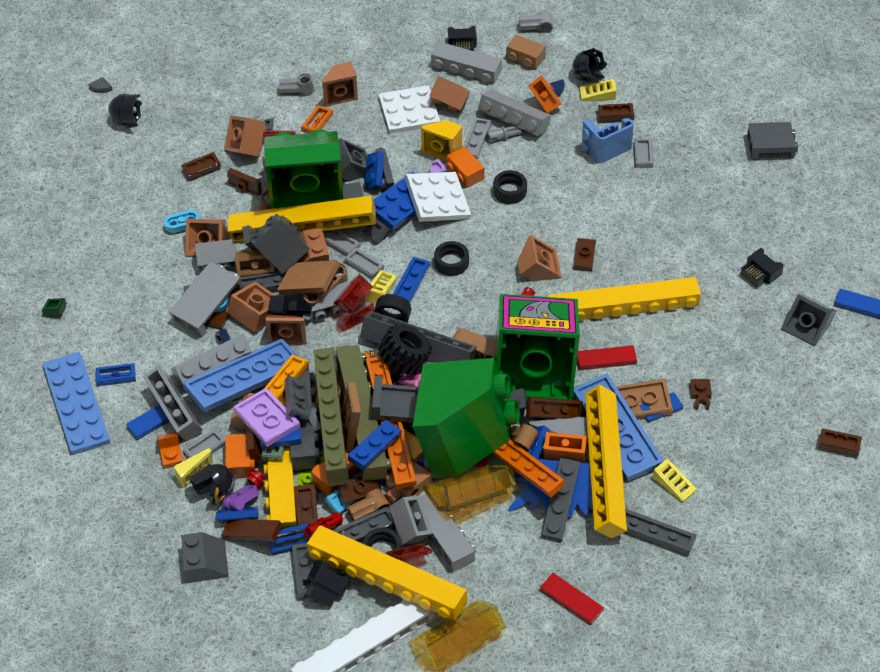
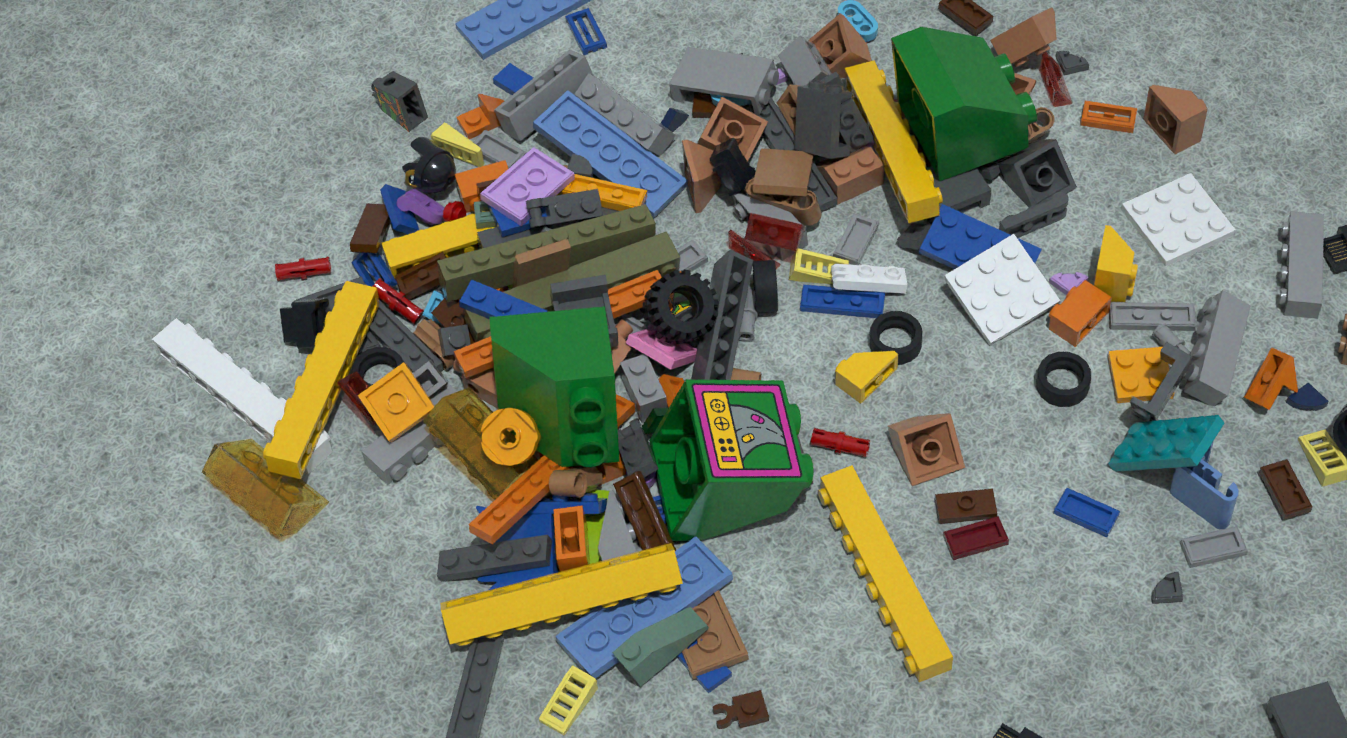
camera: 80 degrees right, 5 degrees up
(134, 494) = (400, 100): none -> dark grey torso
(204, 557) = (327, 193): dark grey slope -> none
(252, 389) = (580, 166): none -> dark grey tile
(265, 585) = (303, 268): none -> red pin
(301, 84) = (1162, 68): light grey piece -> none
(341, 241) = (884, 205): light grey tile -> none
(374, 170) = (1032, 195): blue plate -> none
(378, 489) = (453, 339): none -> dark grey plate
(402, 259) = (869, 278): none -> white hinge
(428, 524) = (397, 402): none -> light orange plate
(449, 93) = (1223, 256): nougat slope -> none
(475, 279) = (865, 372): none -> yellow slope
(478, 460) = (493, 436): none -> light orange plate
(516, 154) = (1137, 373): none -> light orange plate
(541, 134) = (1180, 363): none -> dark grey panel
(571, 598) = (347, 609): red tile -> none
(583, 144) = (1166, 443): none -> teal plate
(604, 201) = (1086, 512): none -> blue tile
(606, 357) = (773, 573): red tile -> none
(608, 255) = (976, 538): none -> dark red tile
(650, 419) = (659, 644): none -> sand green slope
(666, 178) = (1168, 589): none -> dark grey tile

